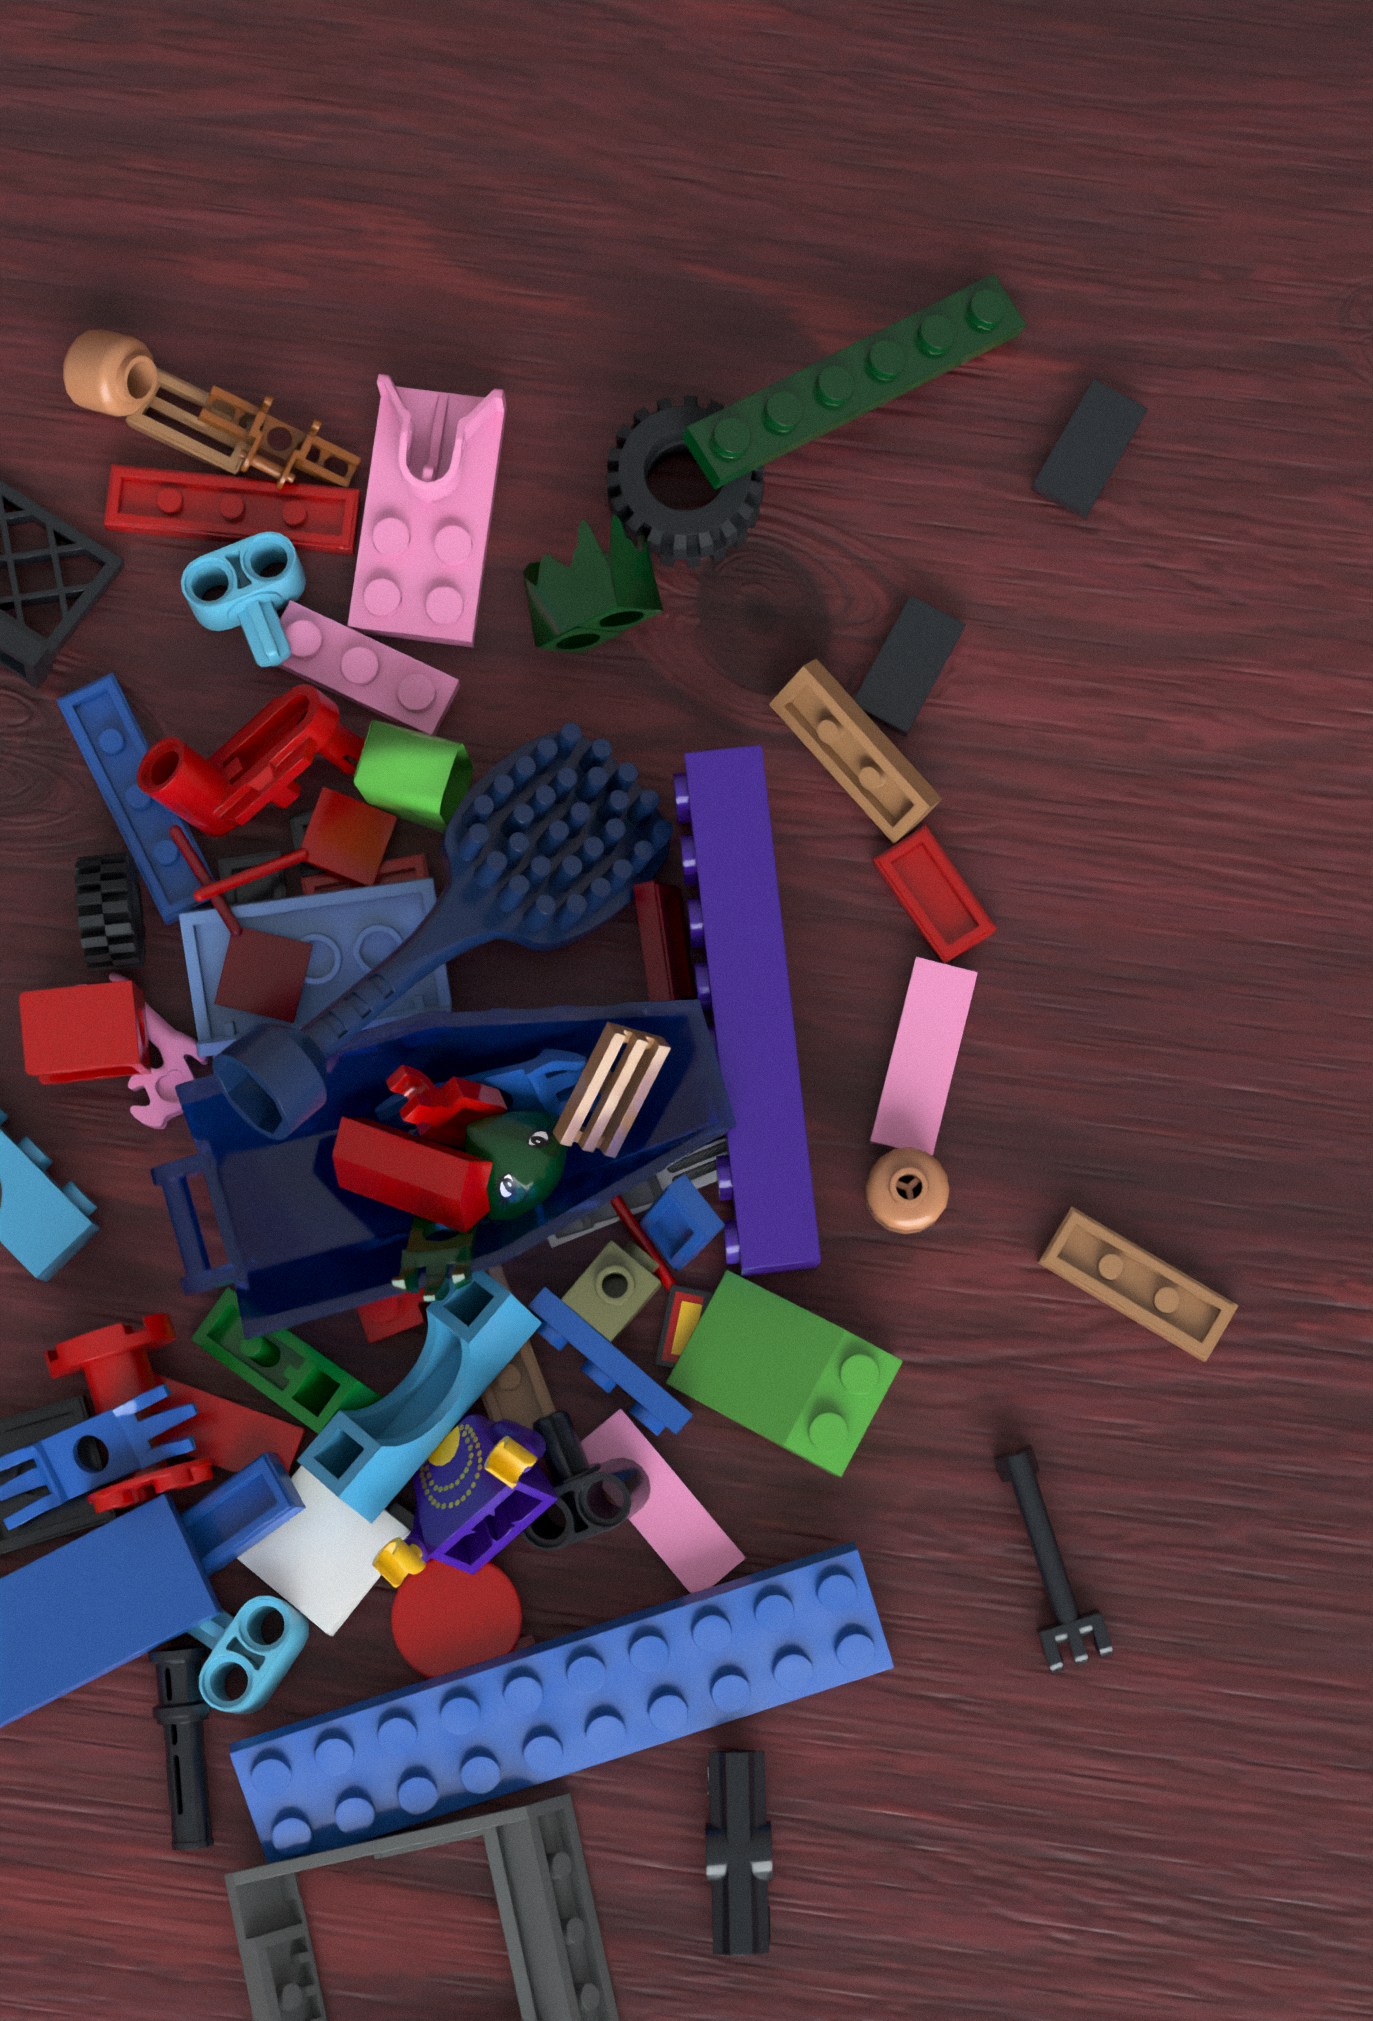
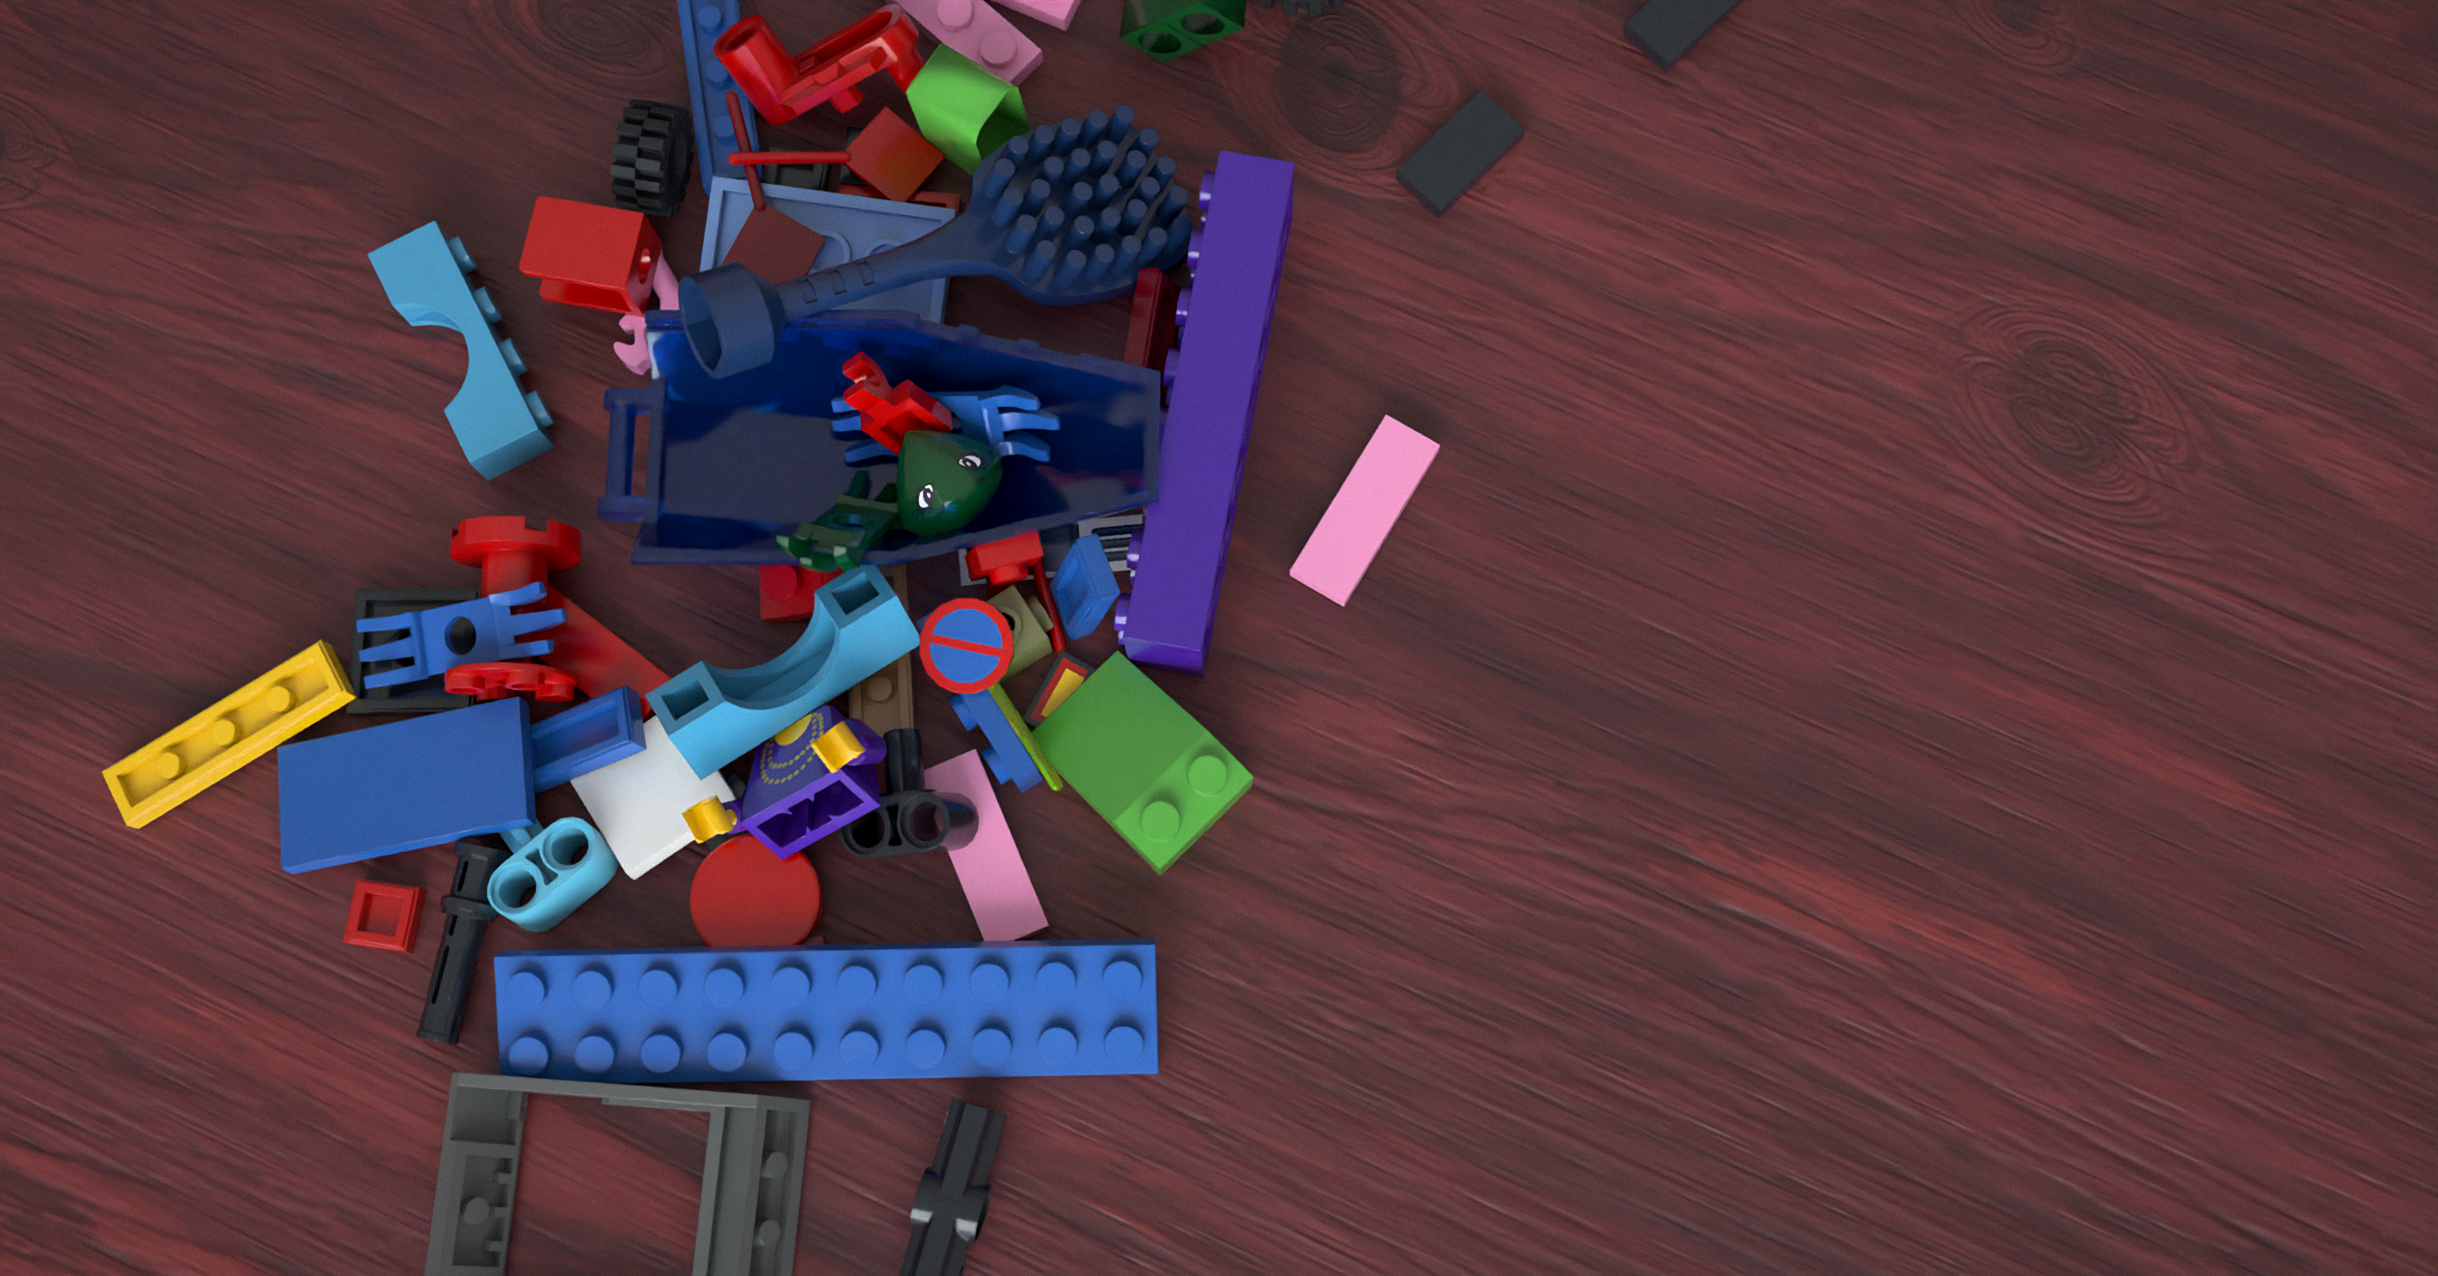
camera: 20 degrees right, 5 degrees down
(98, 1743) = (384, 915): none -> red tile
(282, 1367) = (672, 615): green slope -> none
(411, 1173) = (843, 463): red piece -> none
(591, 1319) = (969, 650): none -> piece
(598, 1226) = (1003, 562): none -> red plate
(620, 1093) = (1021, 477): medium nougat tile -> none
(855, 751) = (1386, 212): medium nougat plate -> none
(907, 1214) = (1308, 644): nougat head -> none
(934, 895) = (1421, 366): red tile -> none
(1069, 1625) = (1341, 1083): black hinge -> none
(1138, 1284) = (1506, 780): medium nougat tile -> none

